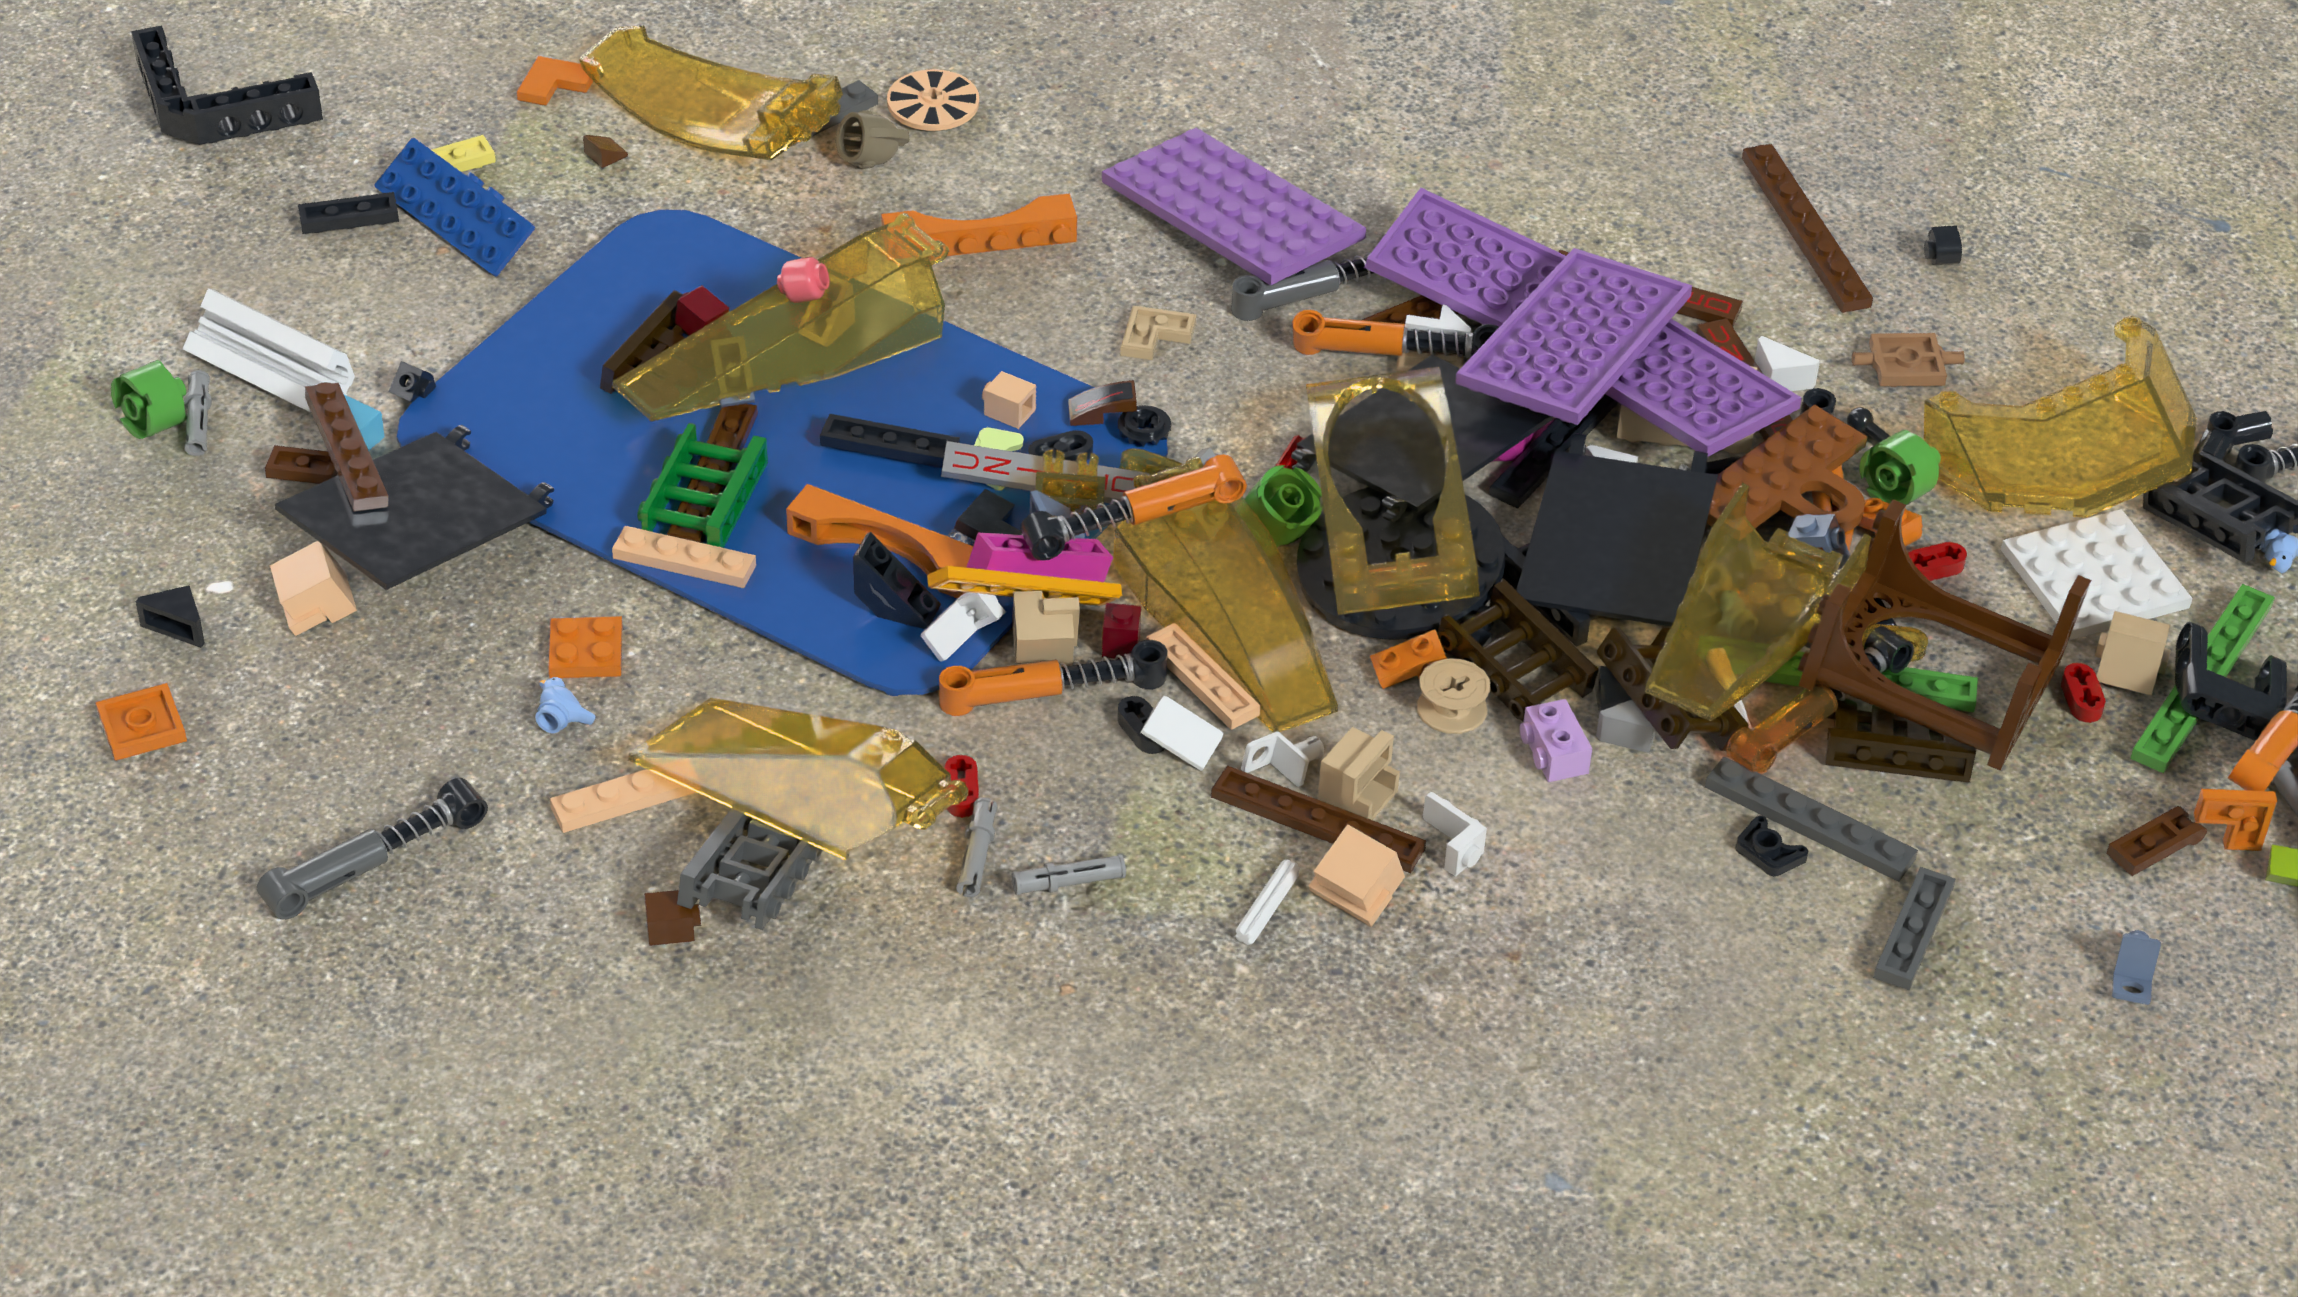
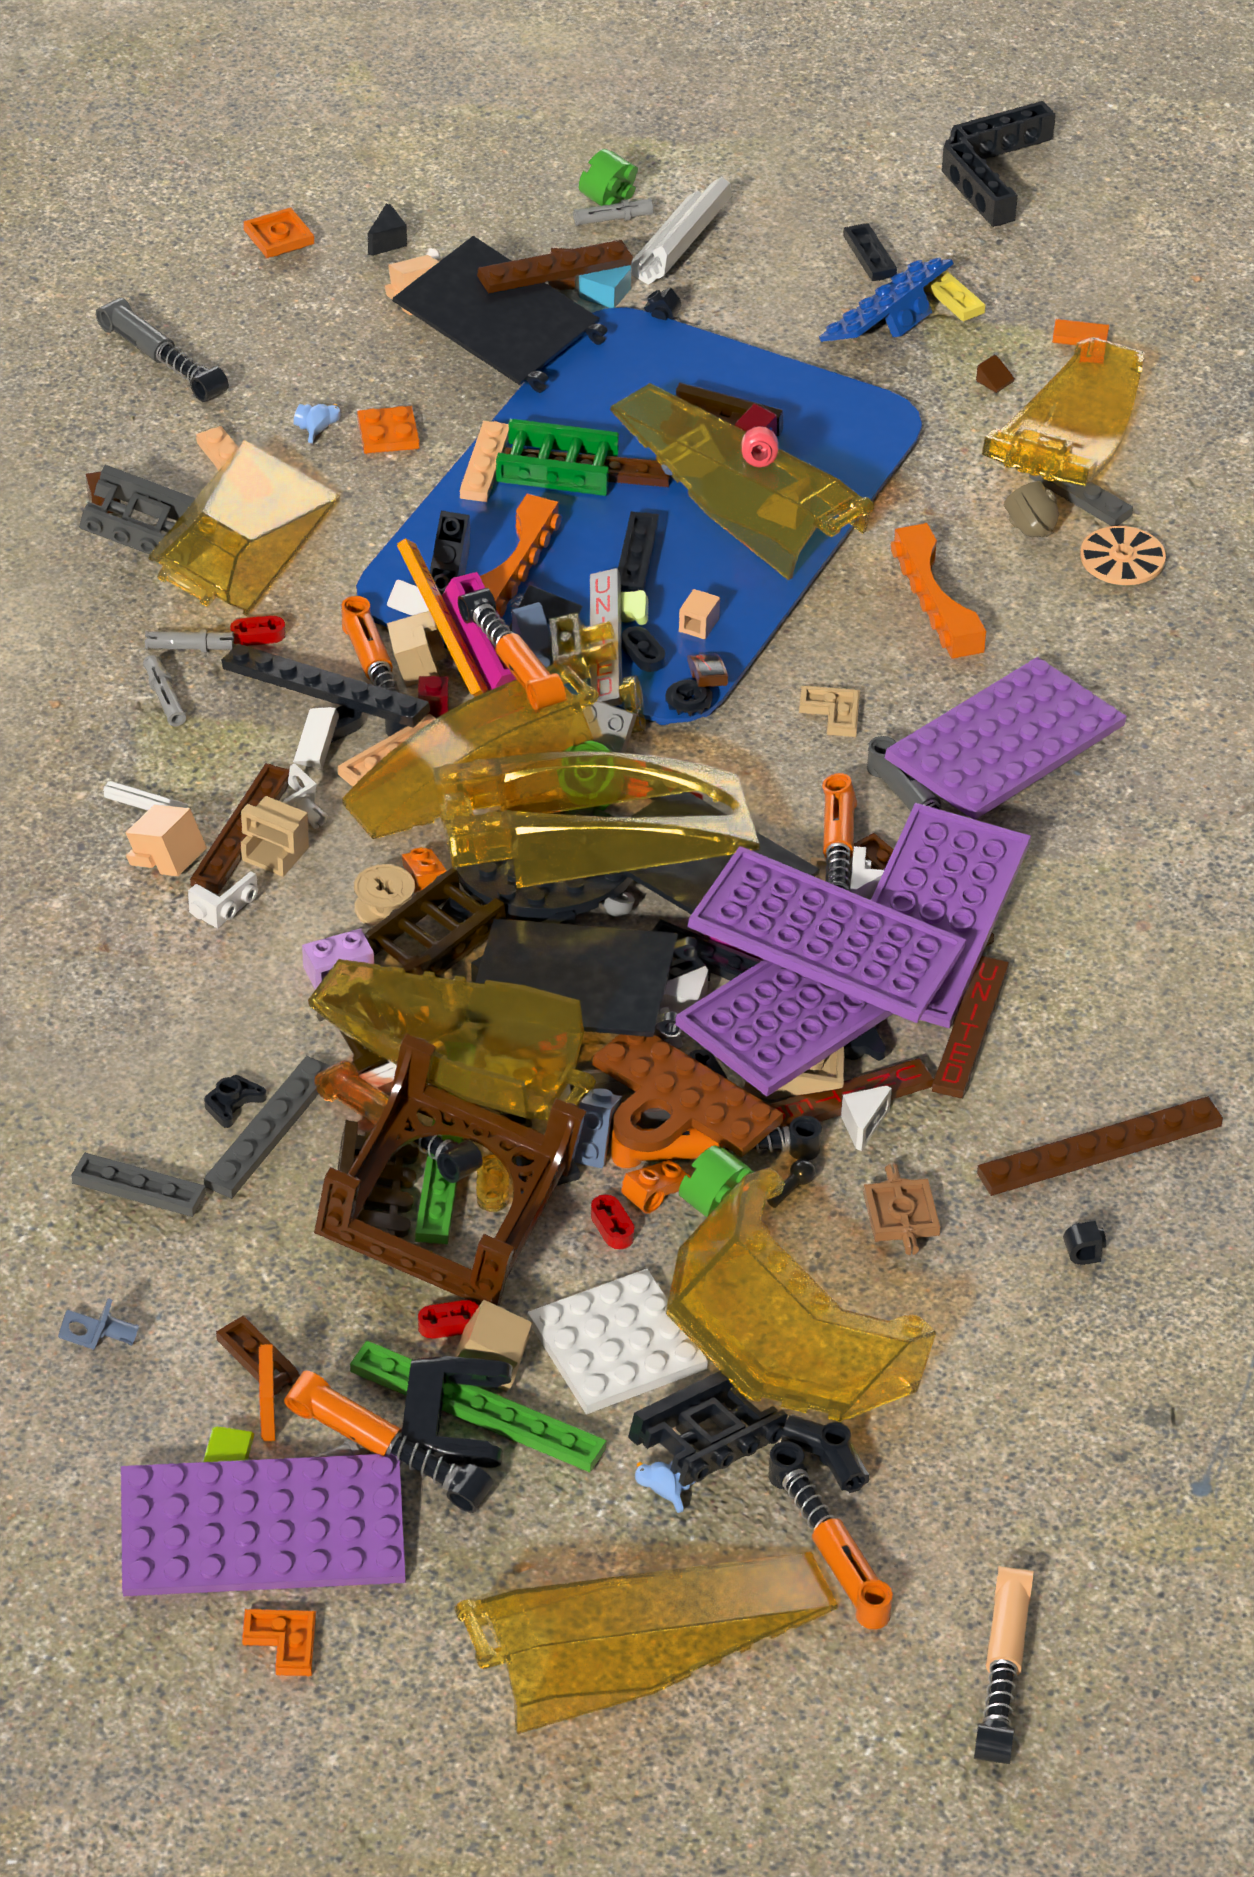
camera: 85 degrees right, 0 degrees up
(1093, 719) = (326, 685): none -> black plate

